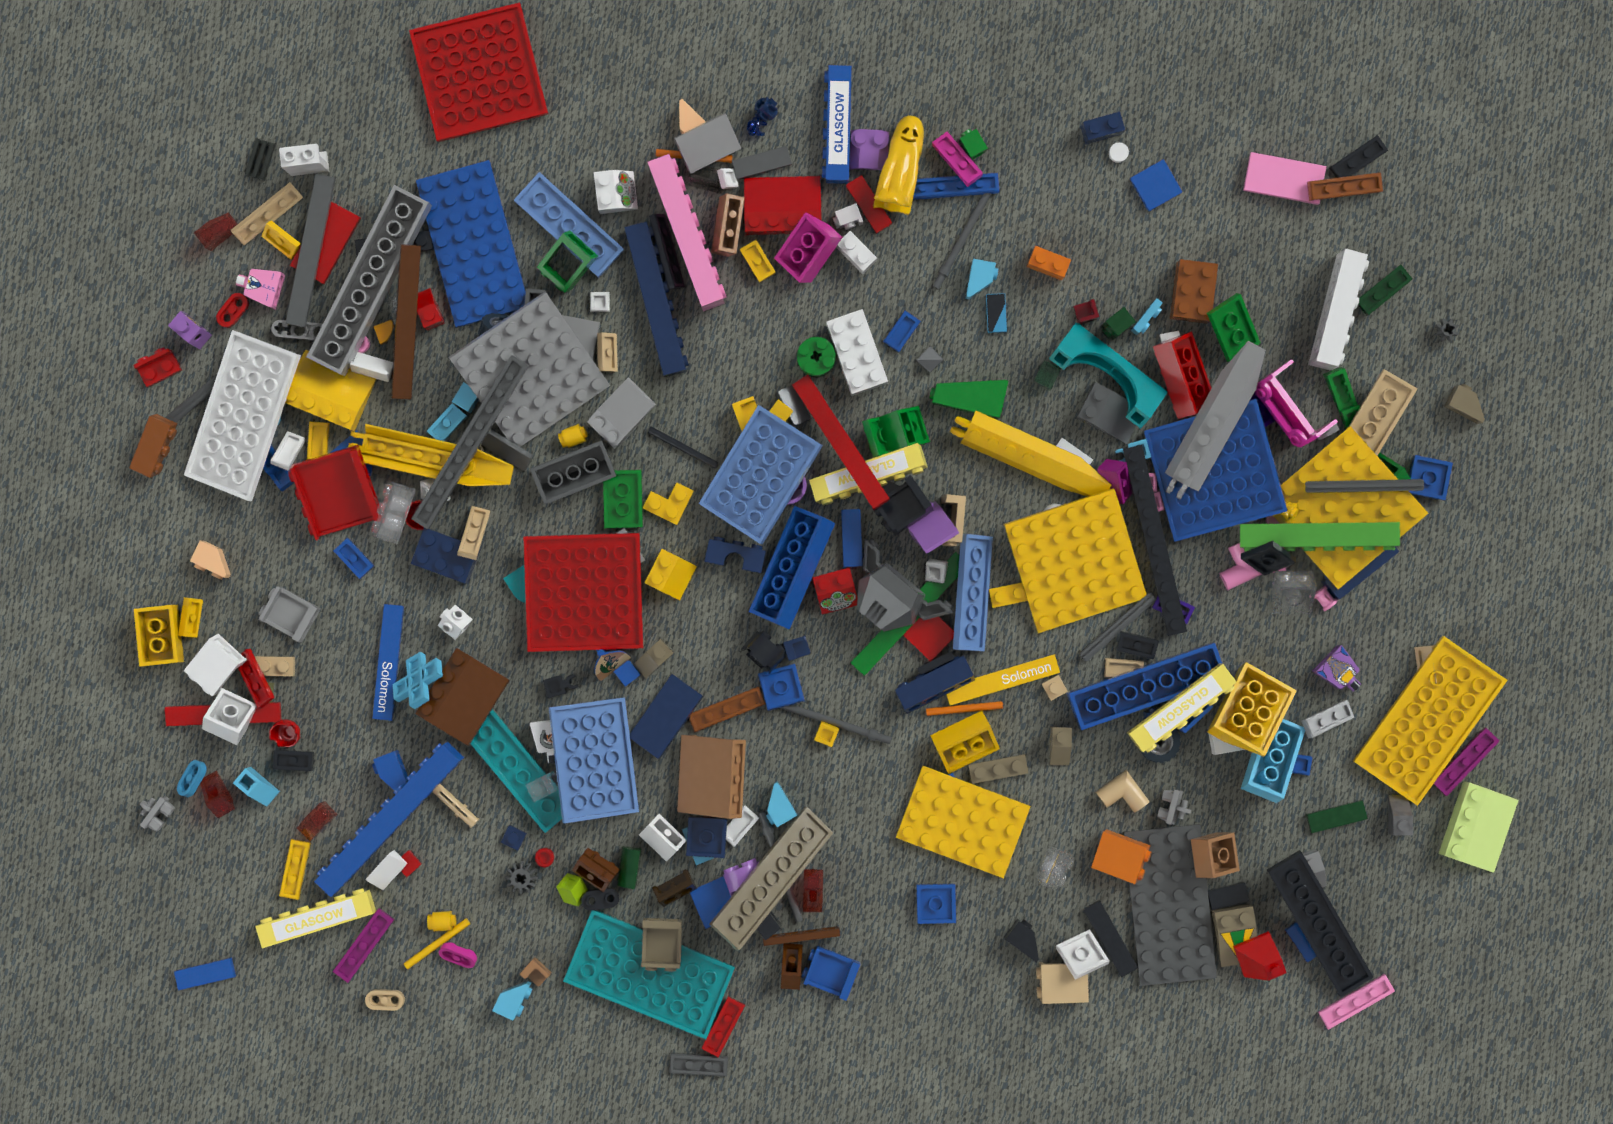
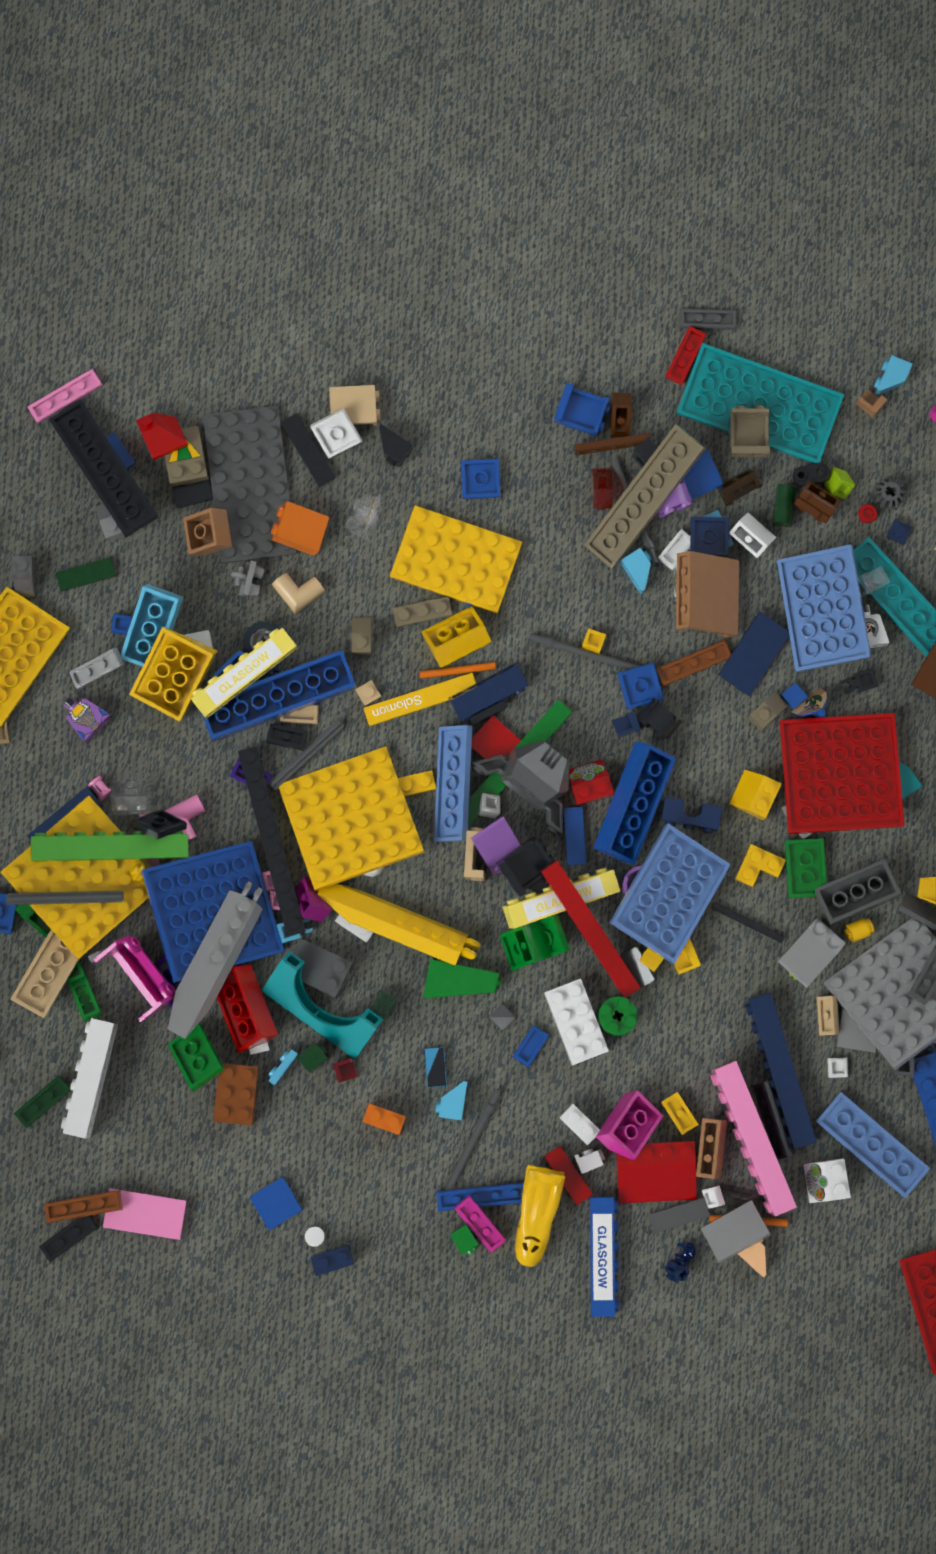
camera: 175 degrees right, 5 degrees down
(580, 249) = (861, 1117): green window -> none
(868, 149) = (570, 1231): medium lavender slope -> none

